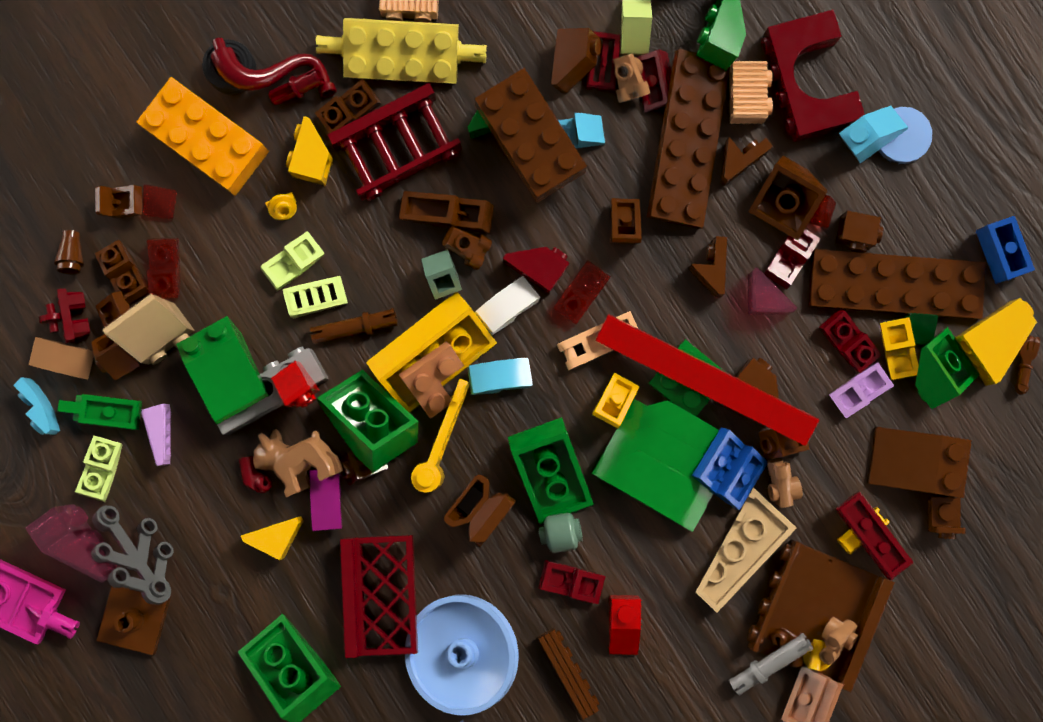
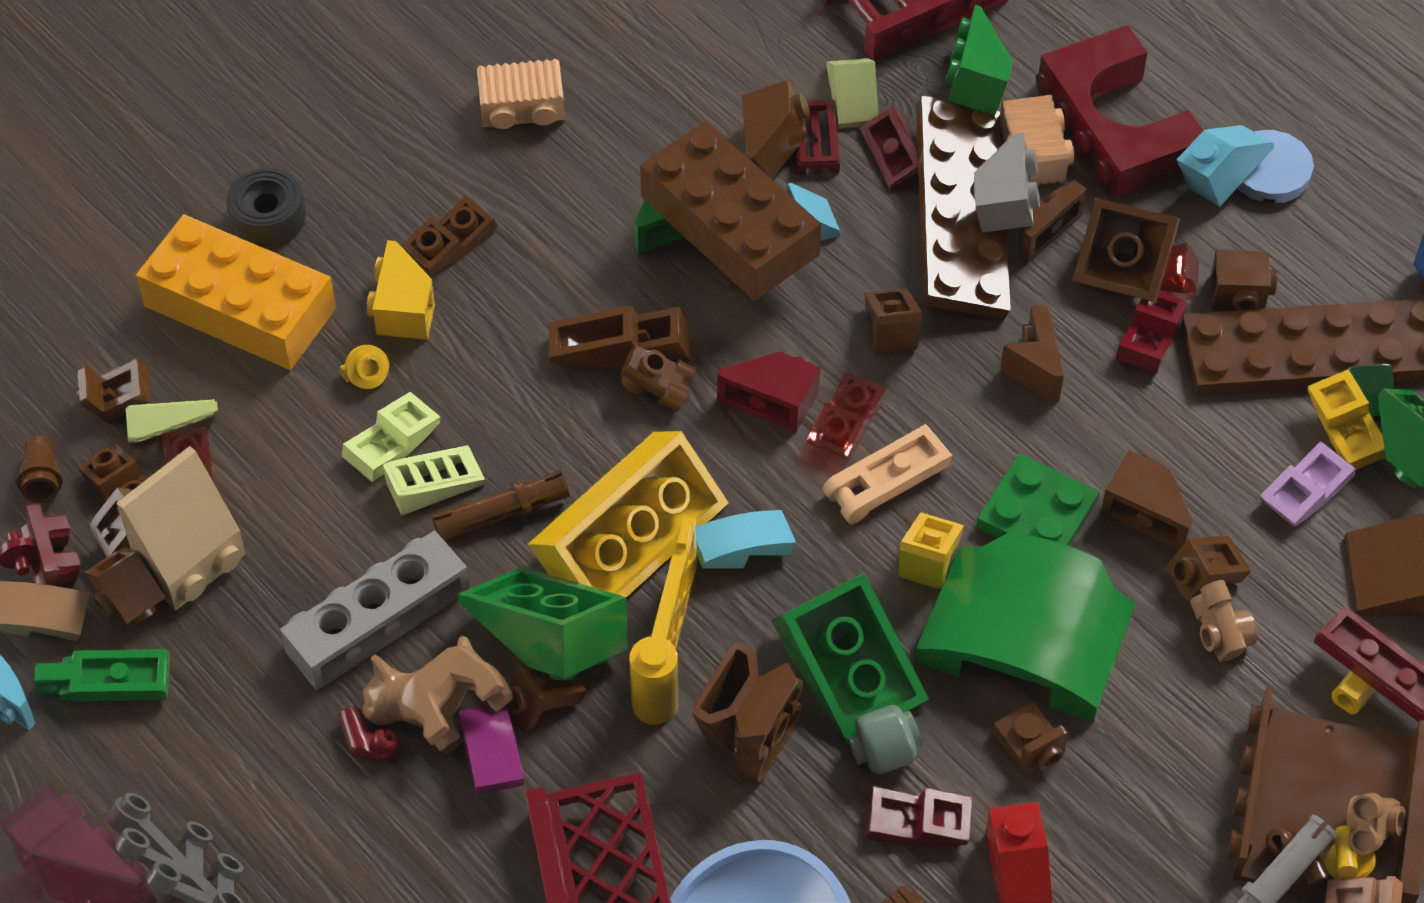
camera: 10 degrees left, 30 degrees down
(99, 468) = (108, 761): yellowish green slope -> none
(151, 228) = (153, 419): none -> yellowish green slope
(158, 431) = (200, 677): lavender slope -> none
(159, 201) = (173, 383): clear red slope -> none
(222, 369) = (300, 572): green slope -> none
(249, 79) = (303, 204): dark red animal -> none
(276, 538) = (411, 816): yellow slope -> none
(295, 386) = (426, 567): red slope -> none
(297, 86) = (369, 216): dark red axle -> none
(371, 126) = (518, 229): dark red fence -> none
(400, 50) = (518, 152): light yellow plate -> none
(426, 376) = (626, 545): nougat plate -> none
(441, 274) = (627, 412): sand green brick -> none
(506, 305) = (731, 445): white slope -> none
(630, 85) = (862, 150): medium nougat plate -> none
(649, 541) = (1031, 739): none -> reddish brown bracket
(707, 380) = (1067, 485): red tile -> none
(717, 143) = (1005, 187): none -> light grey slope
(730, 468) = (1134, 613): blue slope -> none
(746, 547) = (1192, 719): tan wing -> none
(765, 297) = (1130, 382): clear pink slope -> none
(850, 341) = (1265, 424): dark red slope -> none

